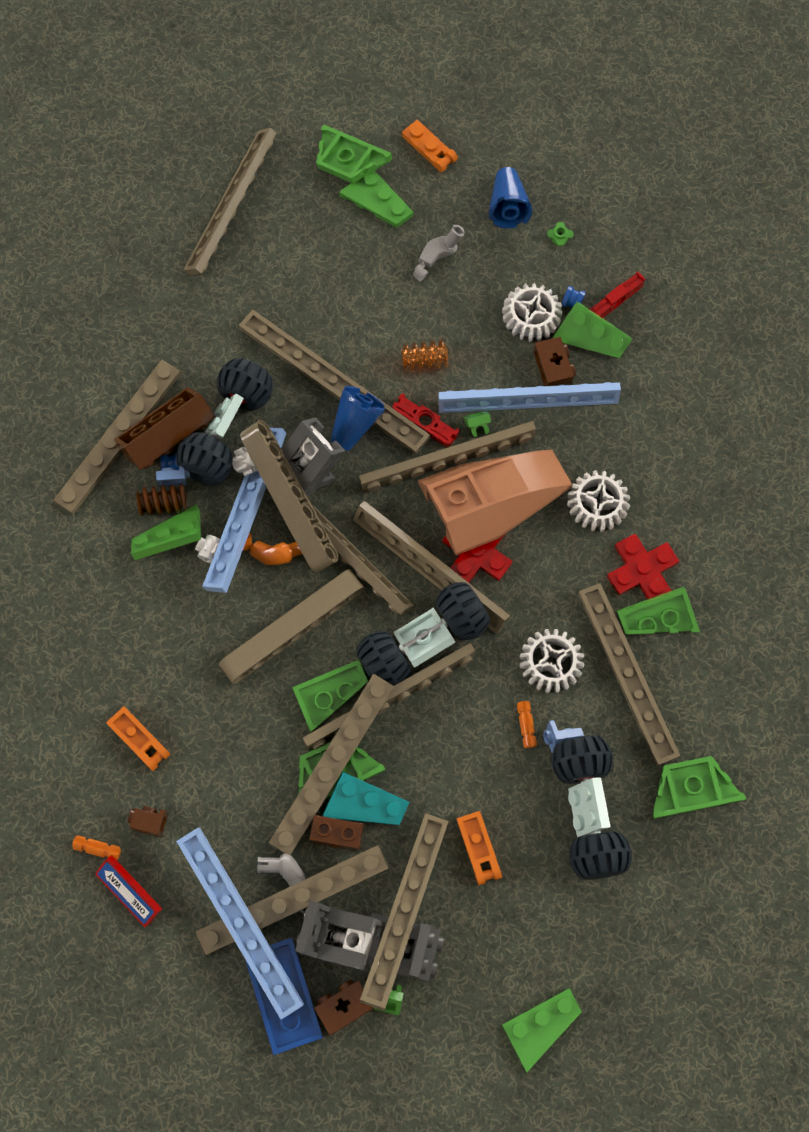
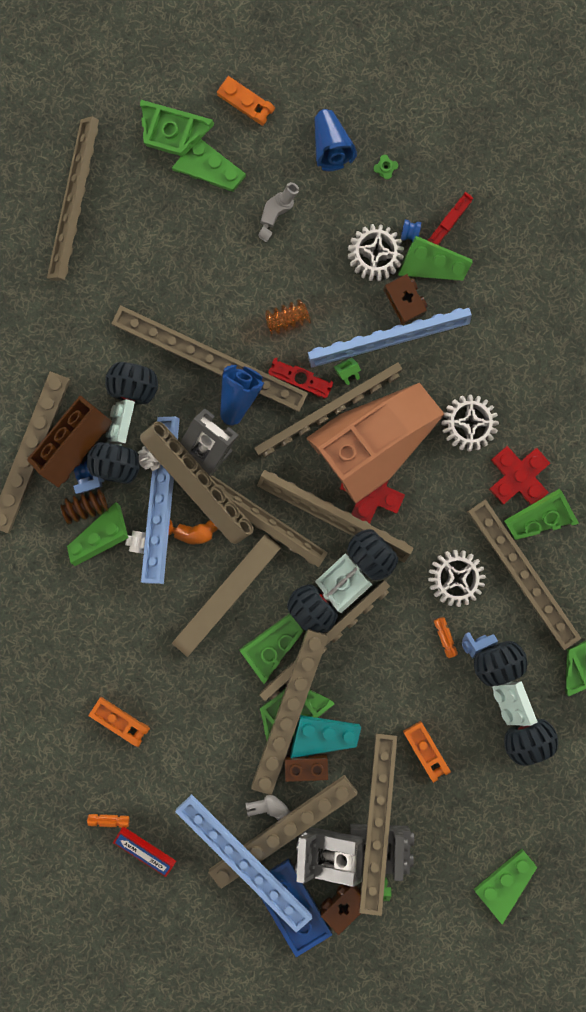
camera: 10 degrees left, 15 degrees up
(148, 821) = (145, 791): reddish brown brick -> none

